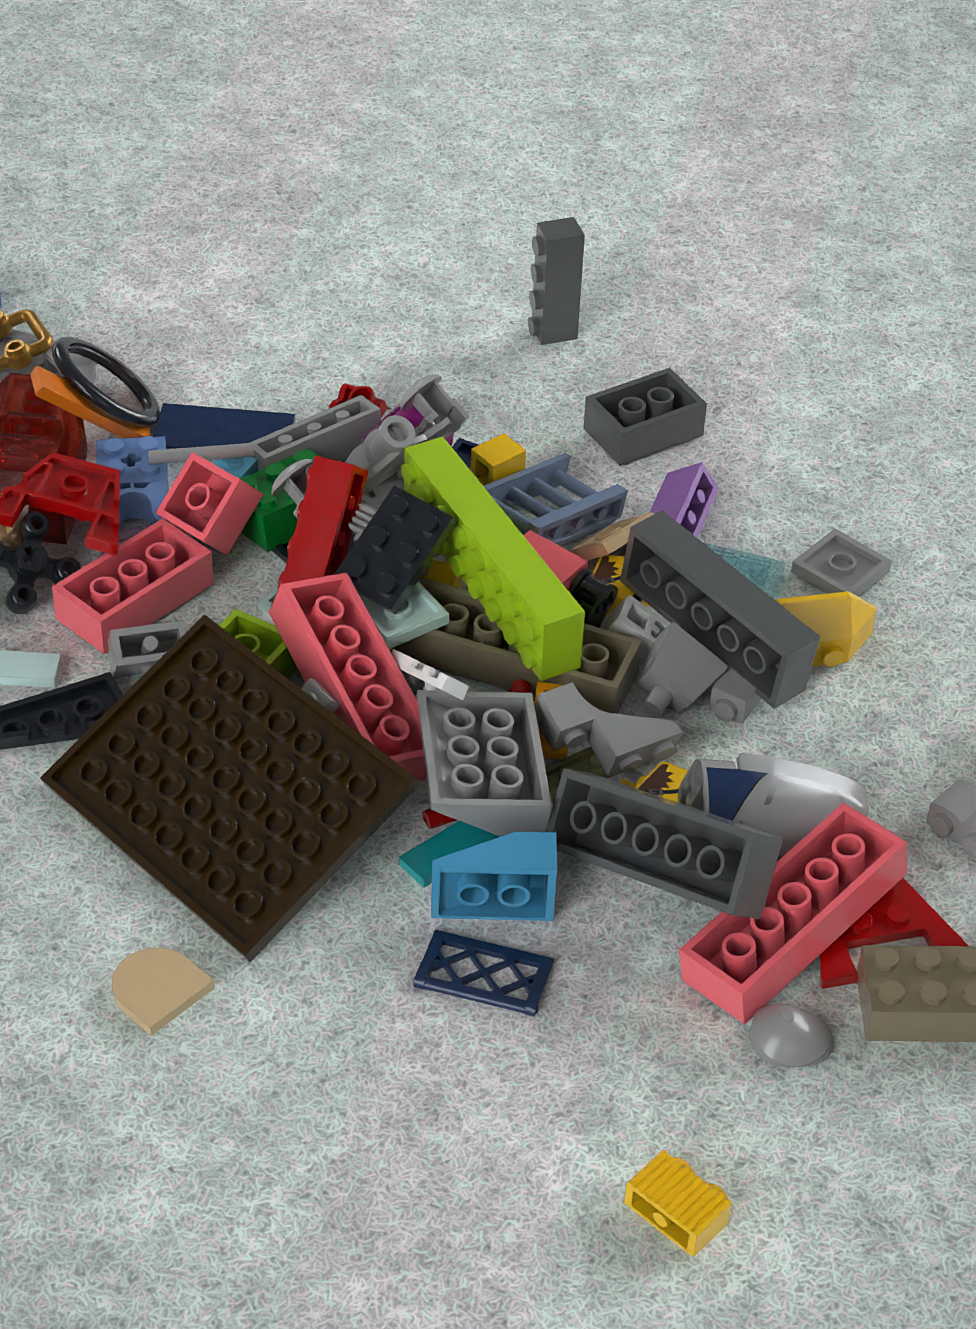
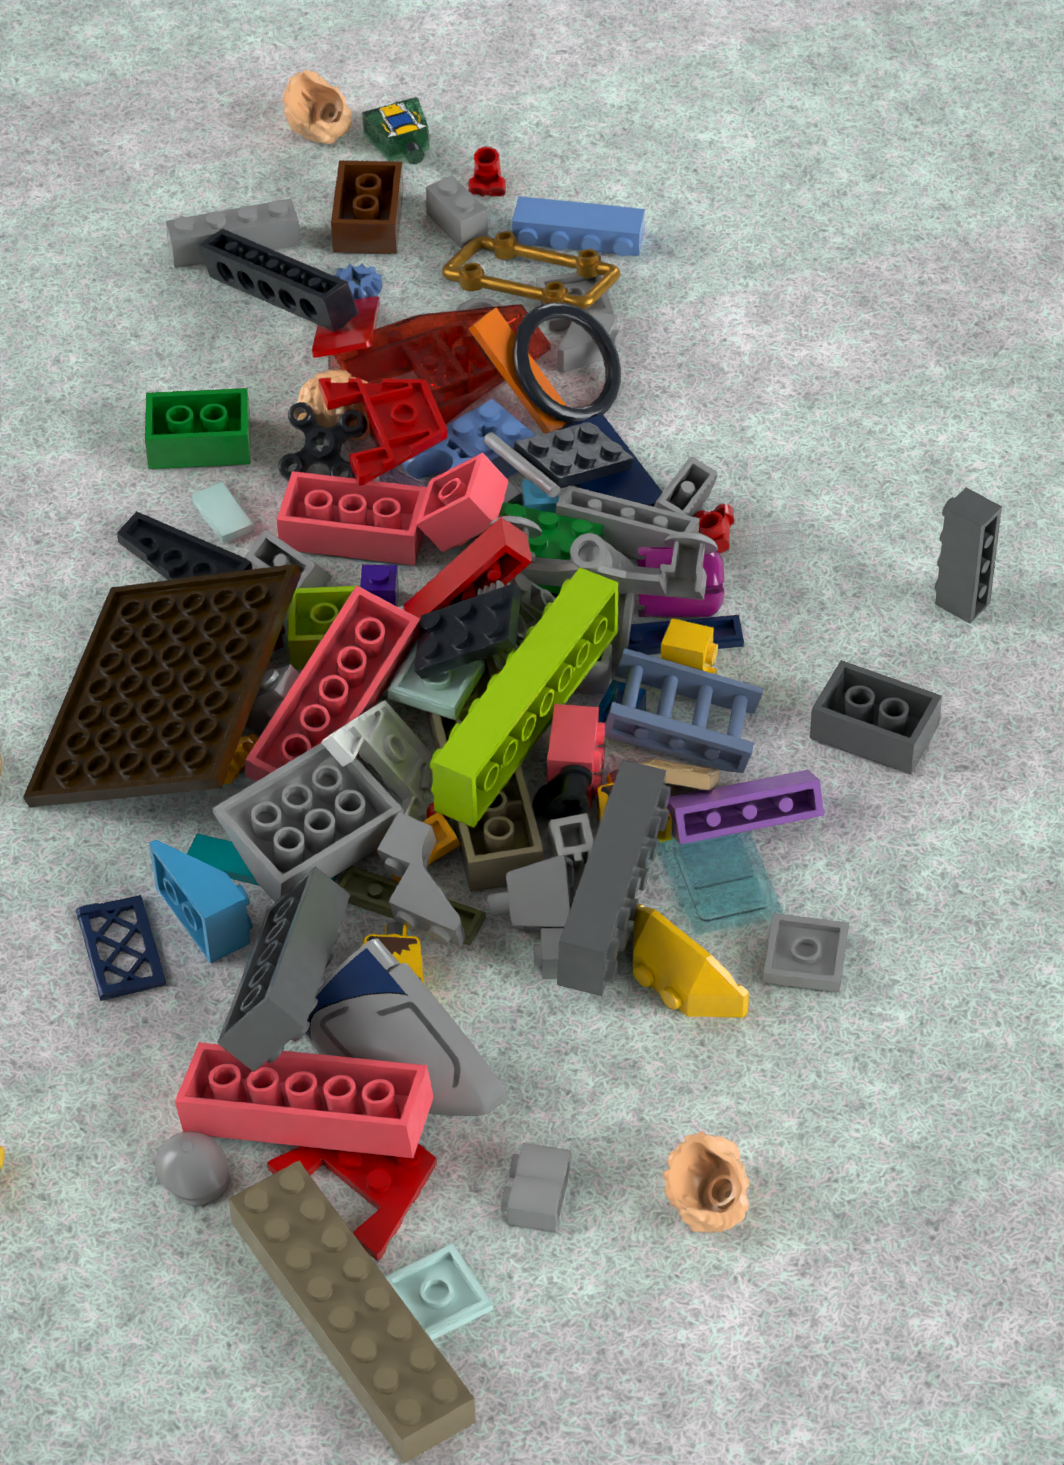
camera: 60 degrees right, 5 degrees up
(209, 425) = (574, 454): none -> black plate
(231, 596) = (381, 581): none -> dark purple brick
(311, 390) = (688, 488): none -> light grey brick

